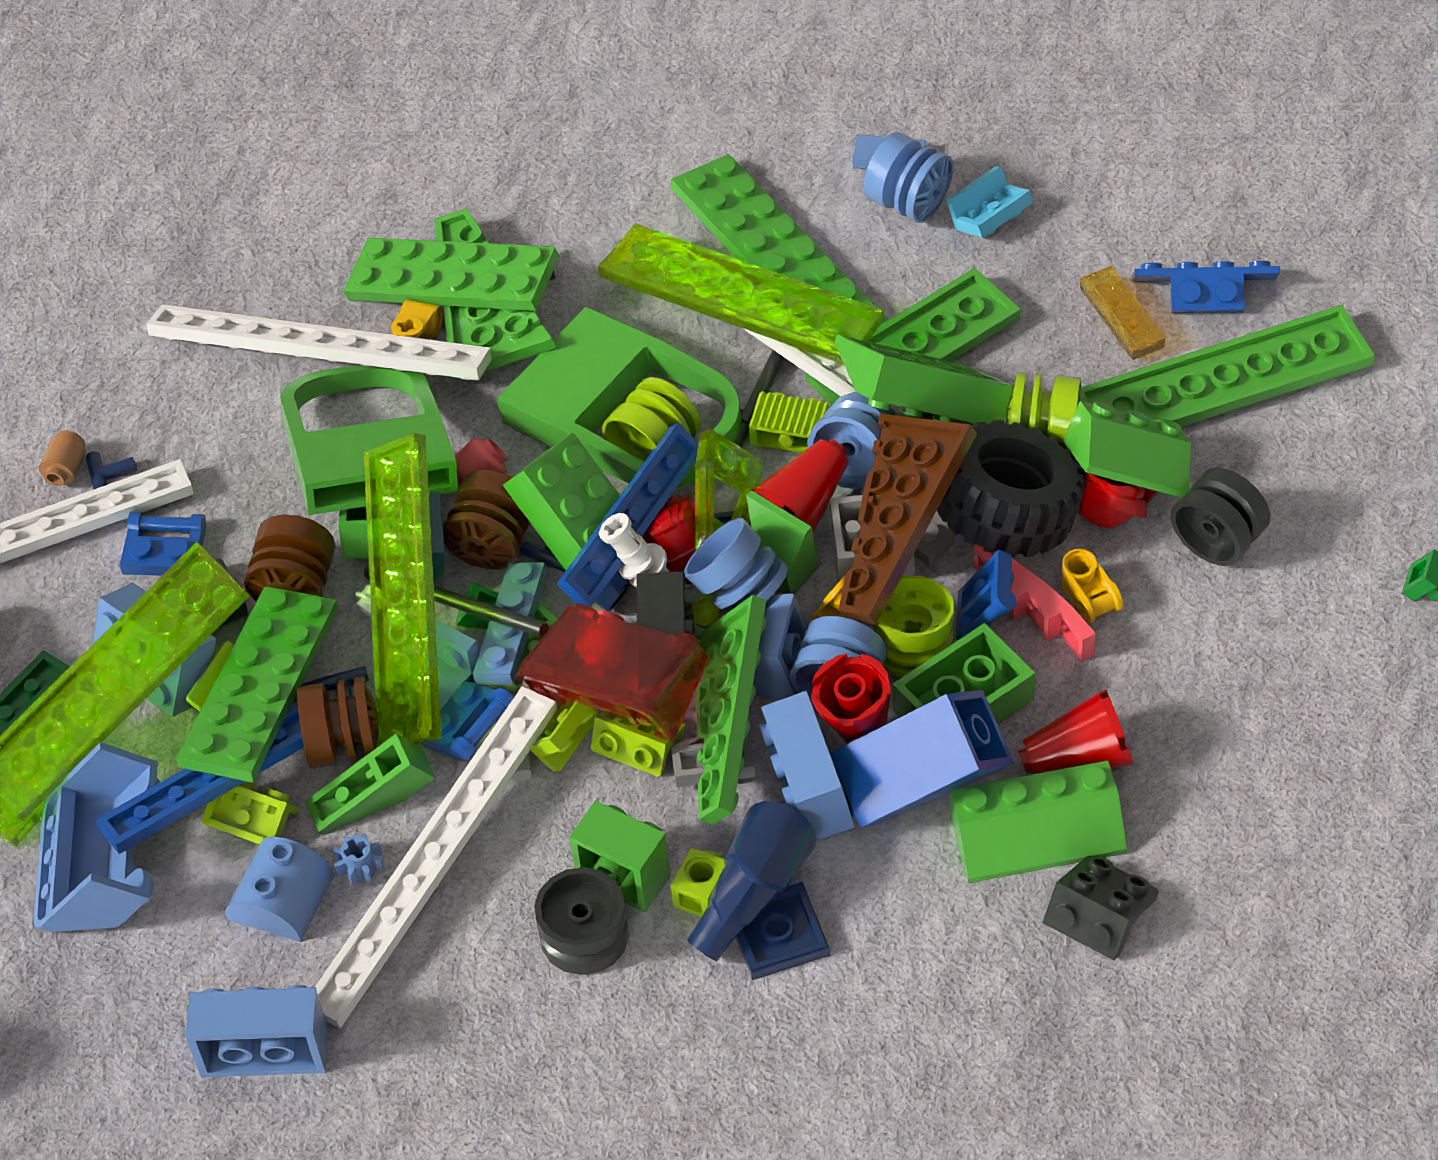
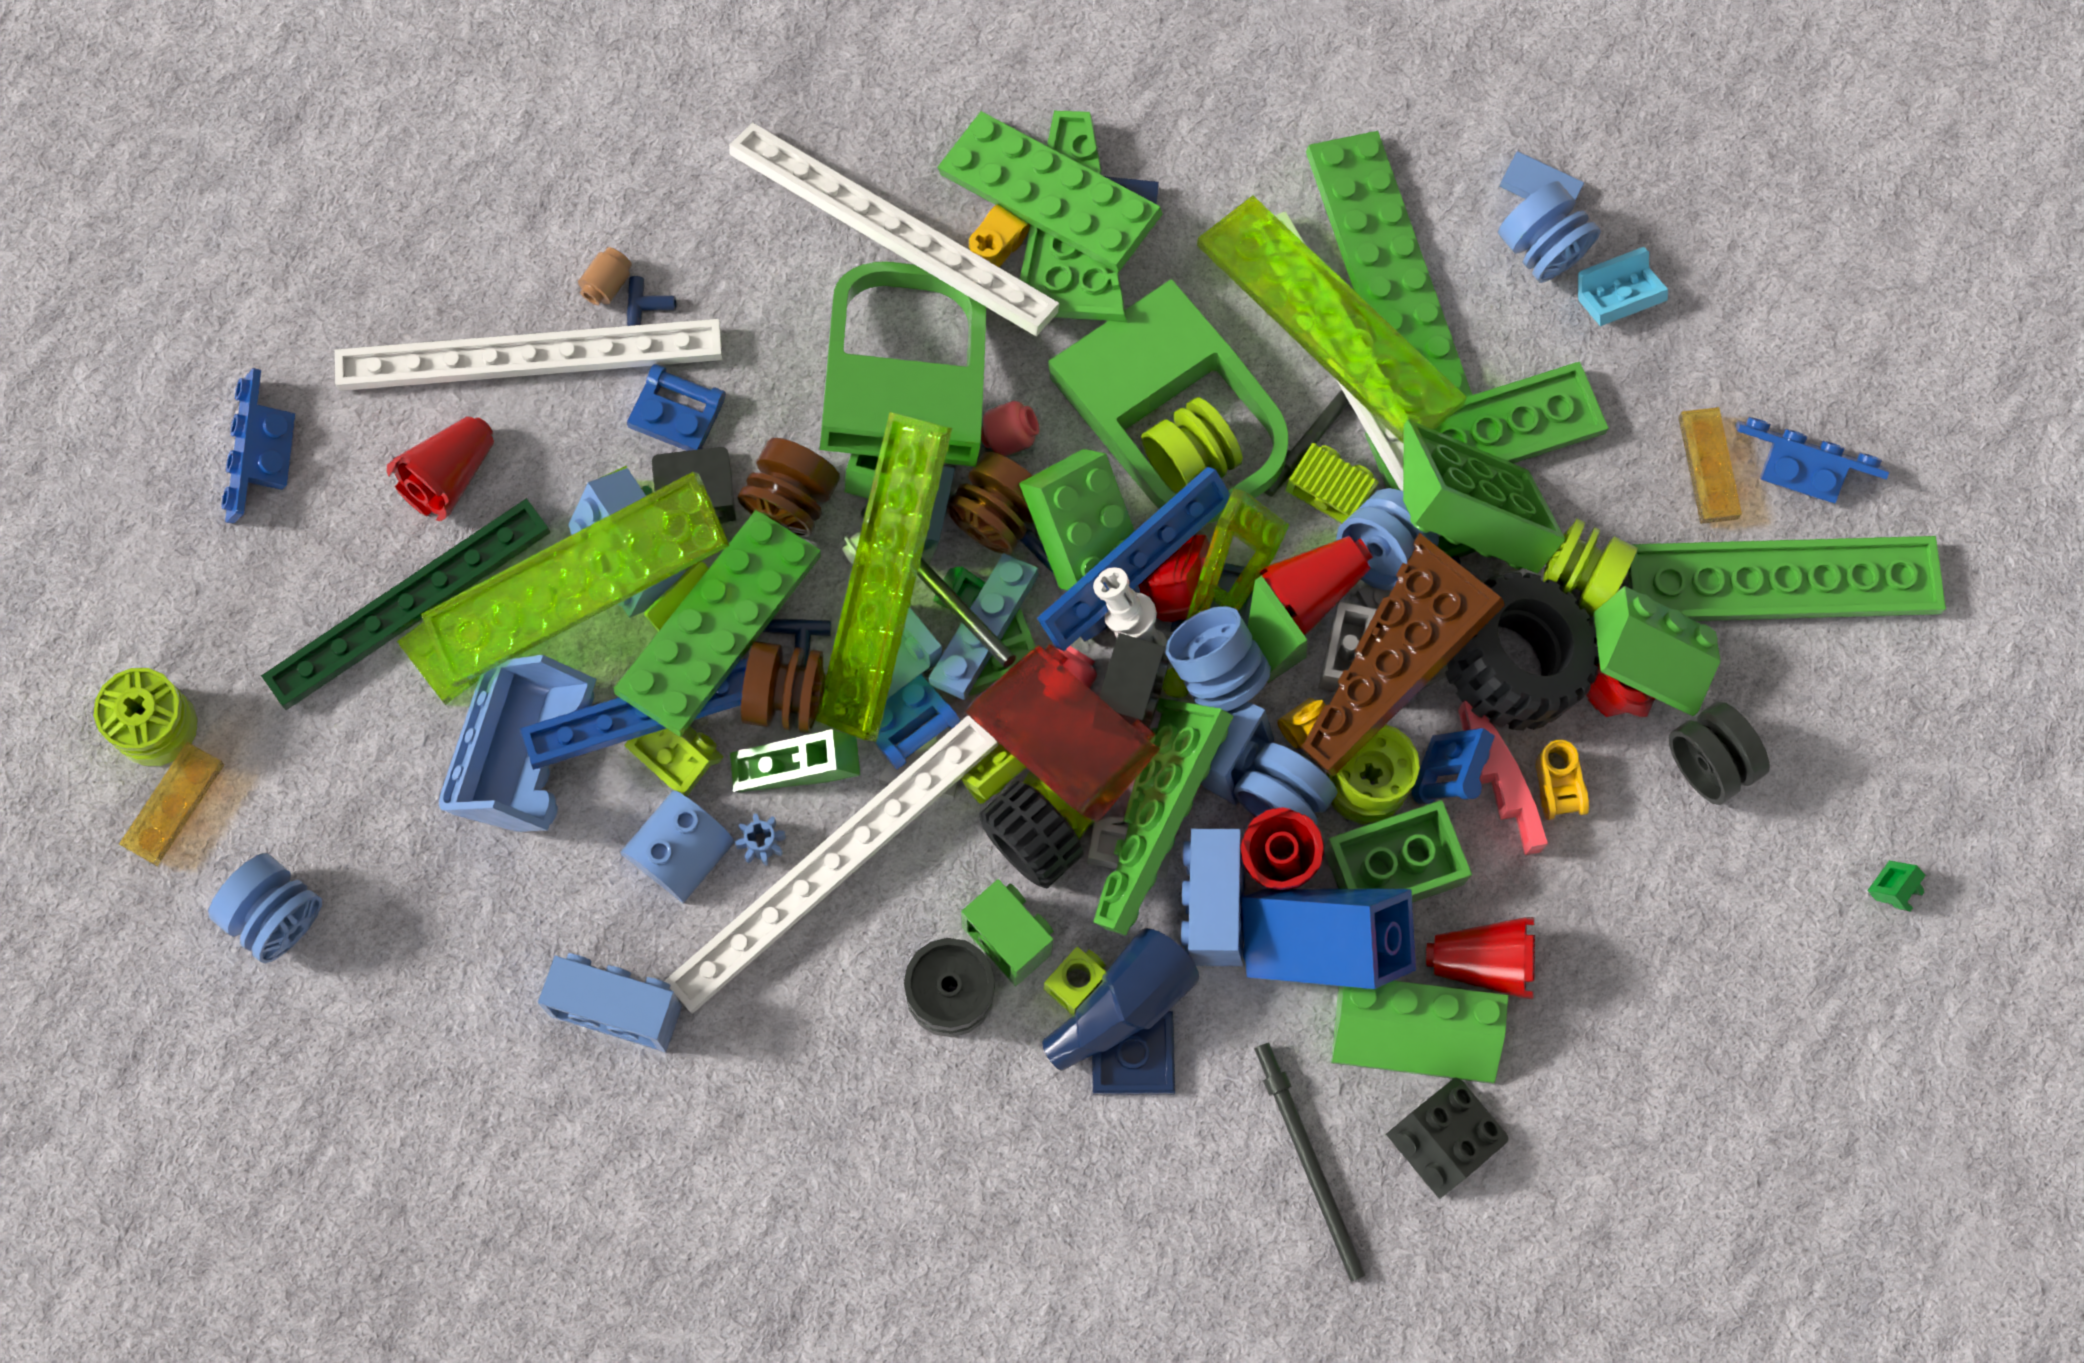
camera: 10 degrees right, 20 degrees up
(614, 765) = (1031, 834): none -> black tyre
(926, 914) = (1278, 1085): none -> pearl dark grey bar

